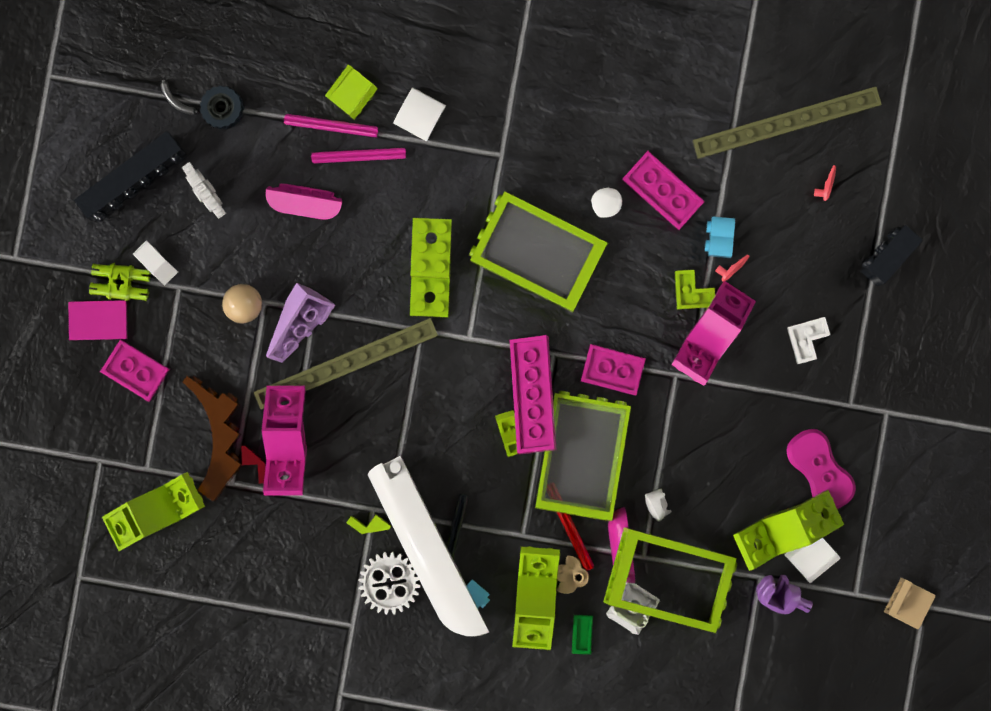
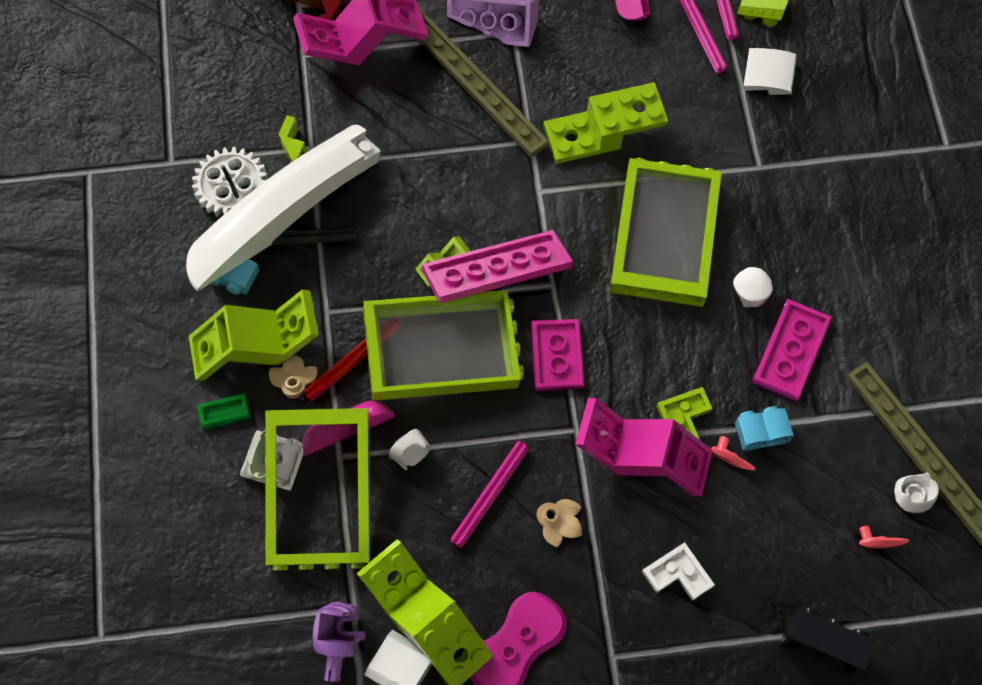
camera: 70 degrees right, 20 degrees down
(707, 455) = (489, 494): none -> dark pink axle
(745, 408) = (563, 522): none -> tan plate
(801, 145) = (916, 492): none -> white hair

